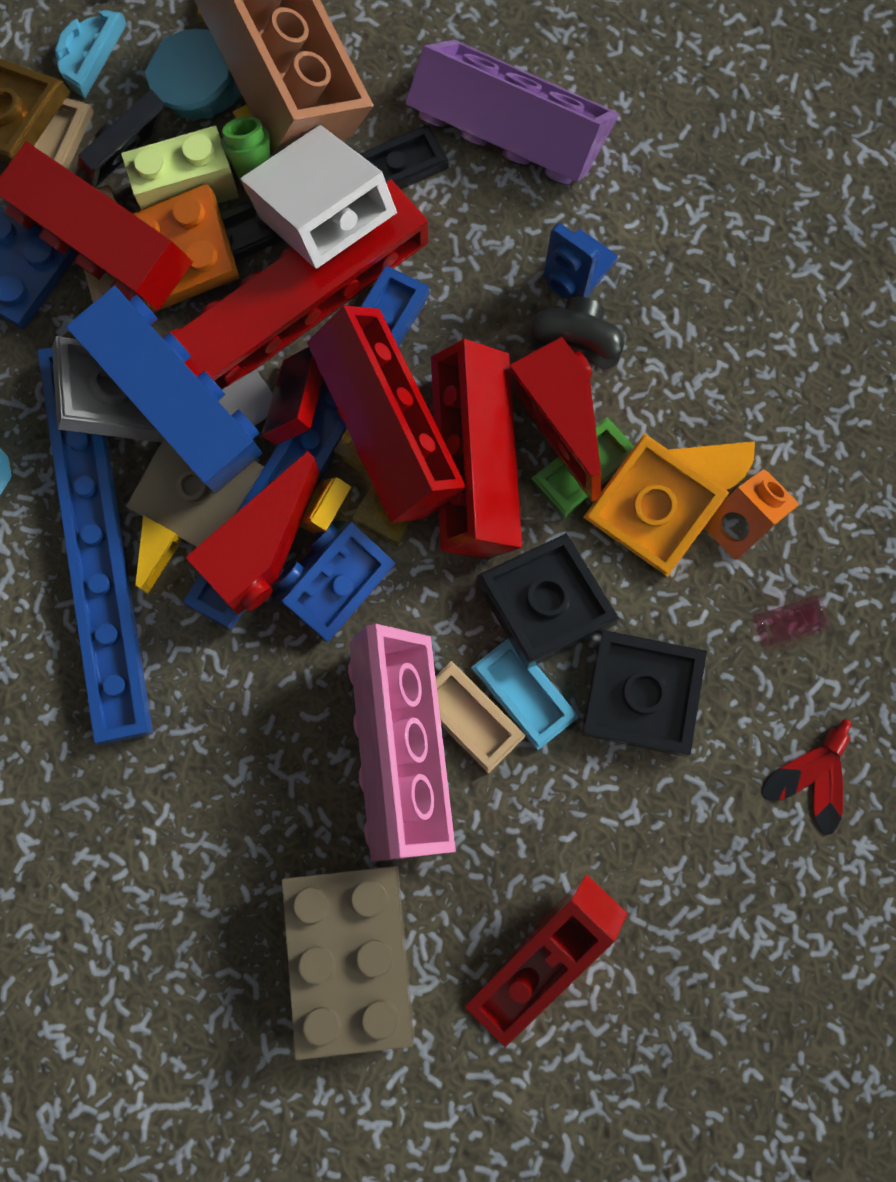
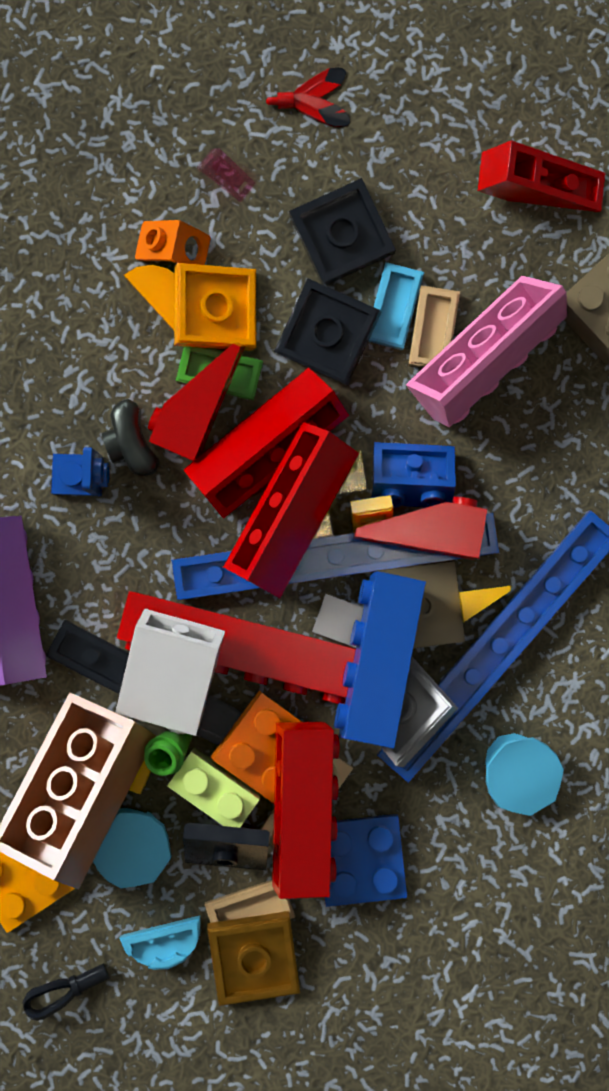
camera: 135 degrees left, 10 degrees up
(293, 398) = (315, 586): tile -> none

